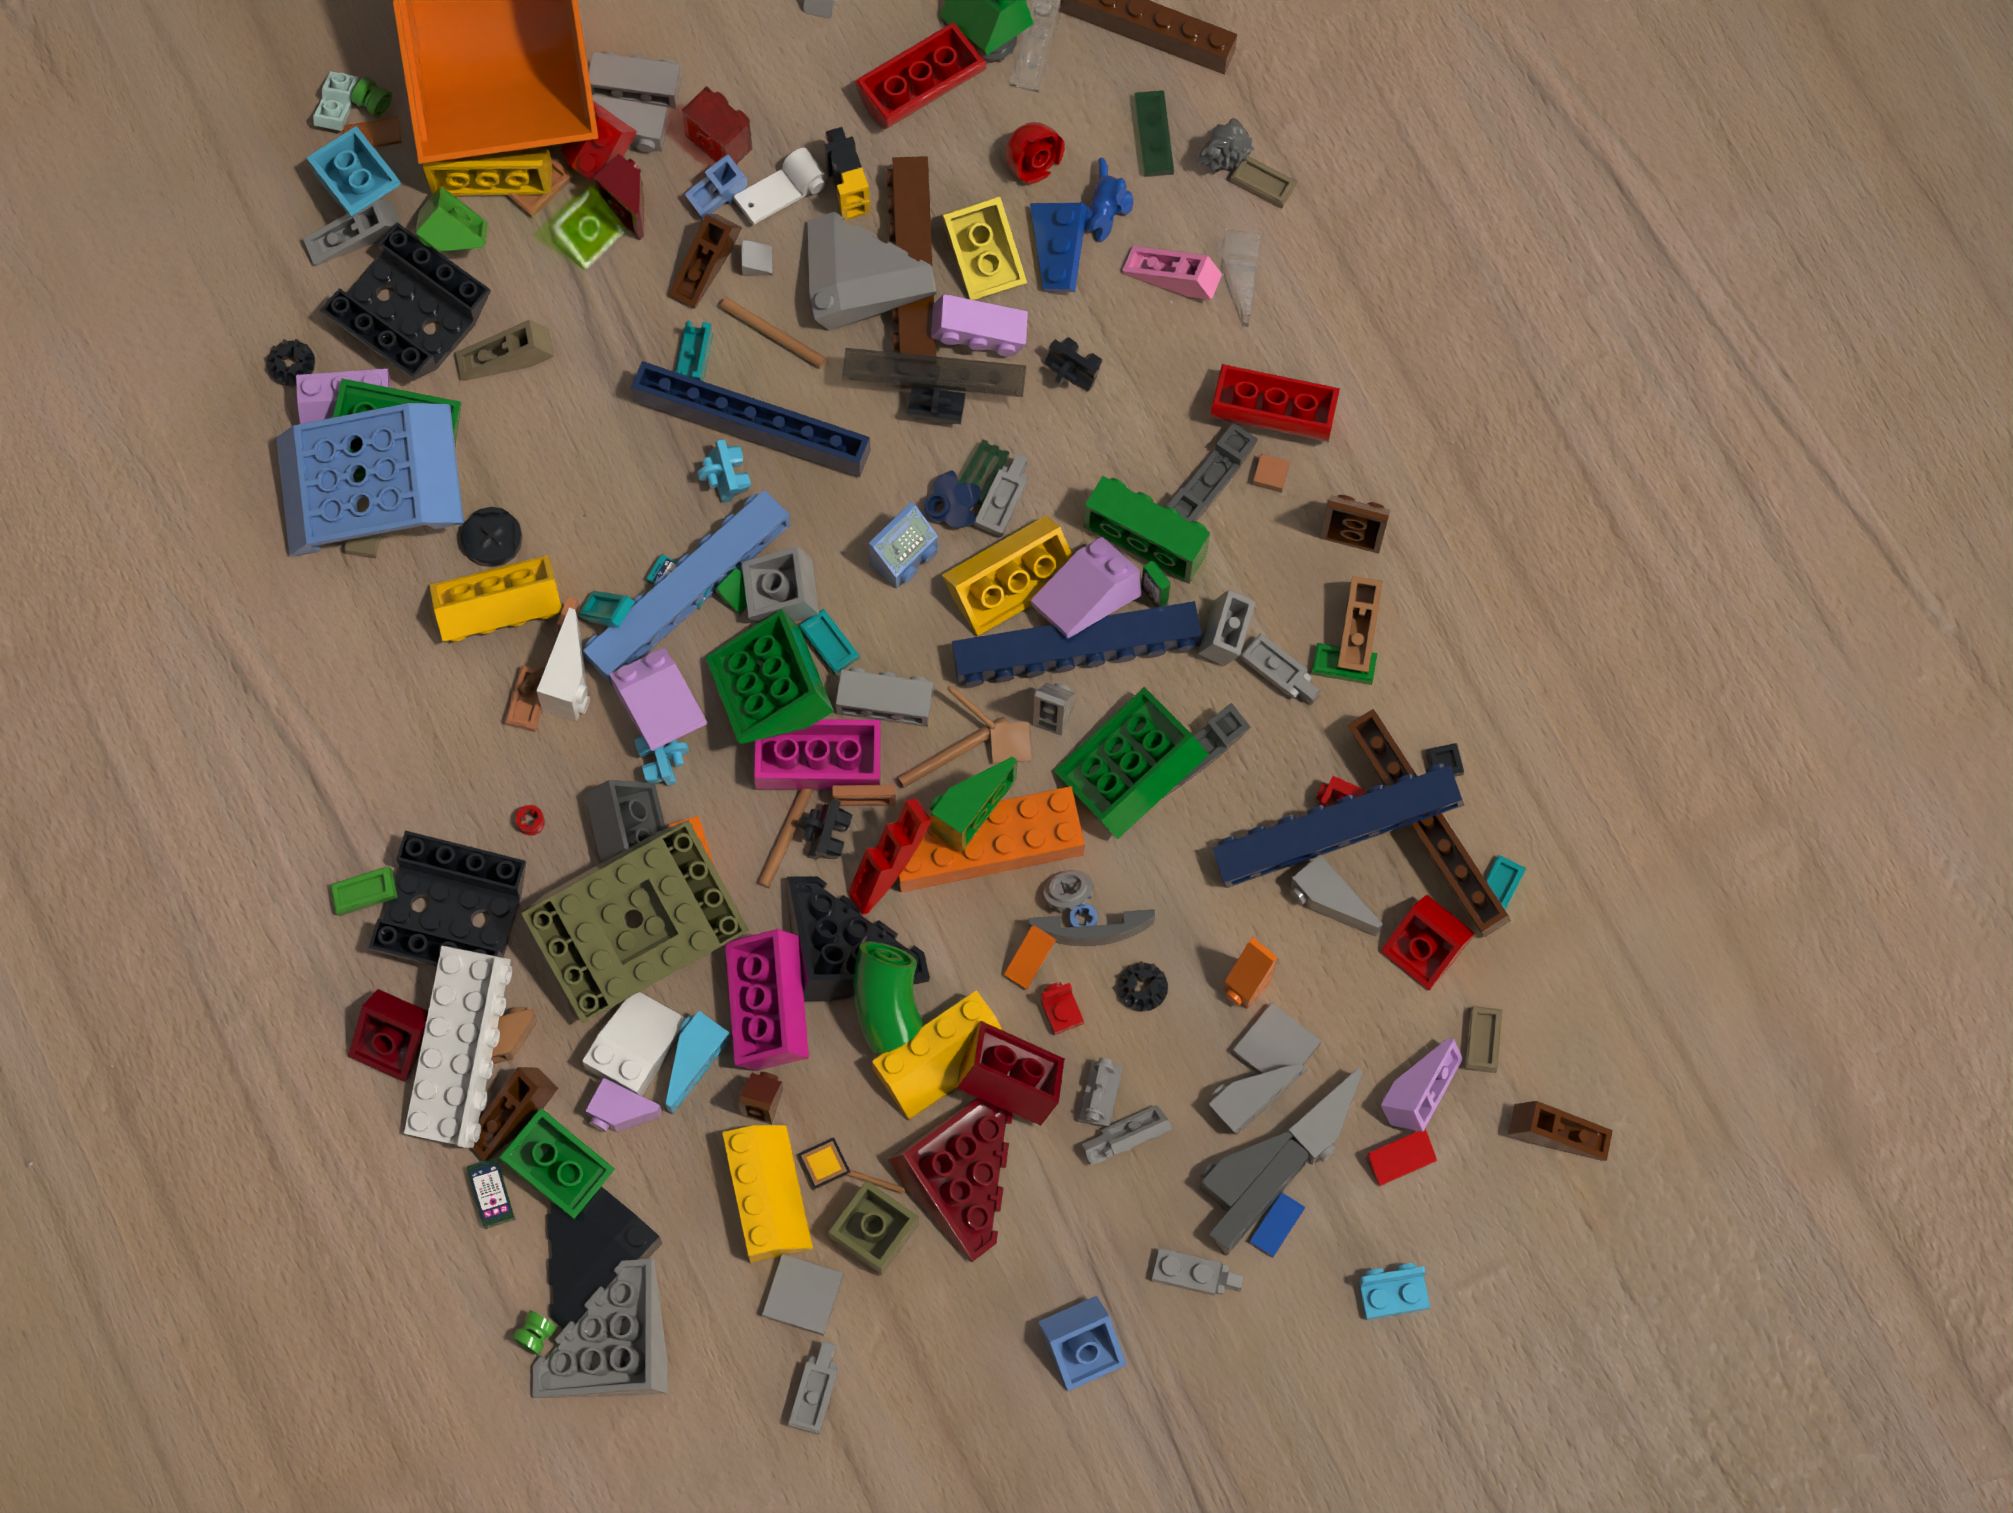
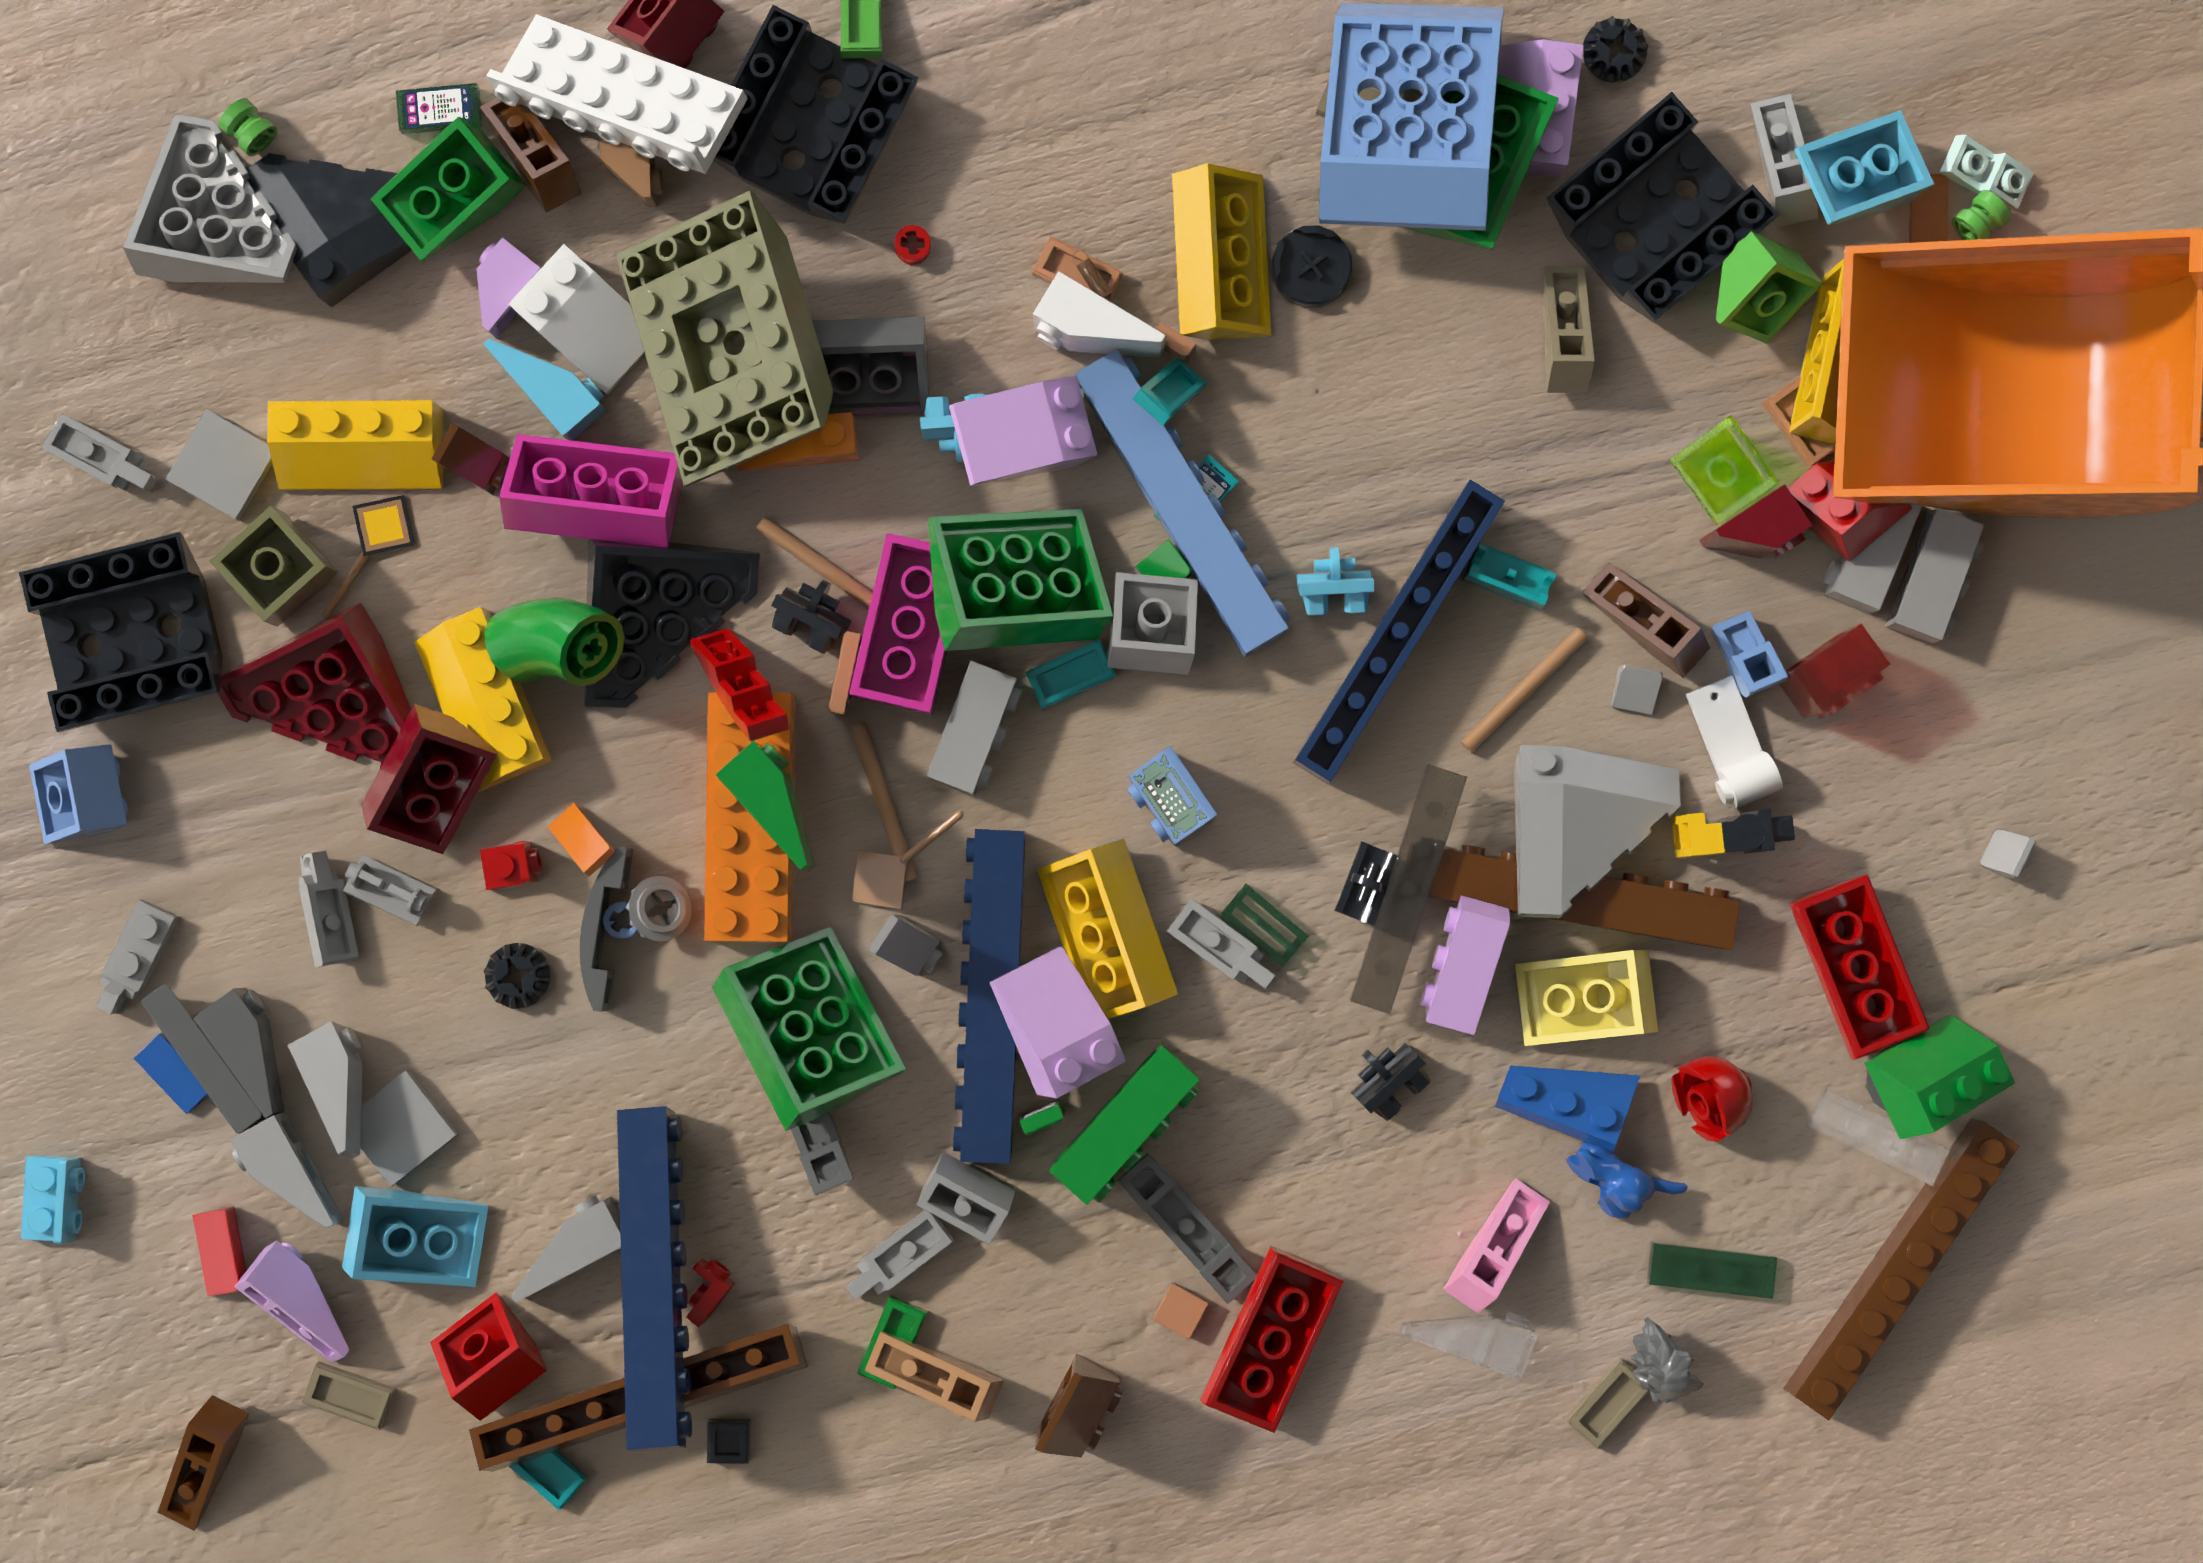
camera: 110 degrees right, 15 degrees up
(957, 501) = (1227, 882): dark blue plate -> none
(974, 1324) = (124, 601): none -> black slope
(1250, 974) = (483, 1113): orange slope -> none
(1354, 1015) = (413, 1238): none -> medium azure slope

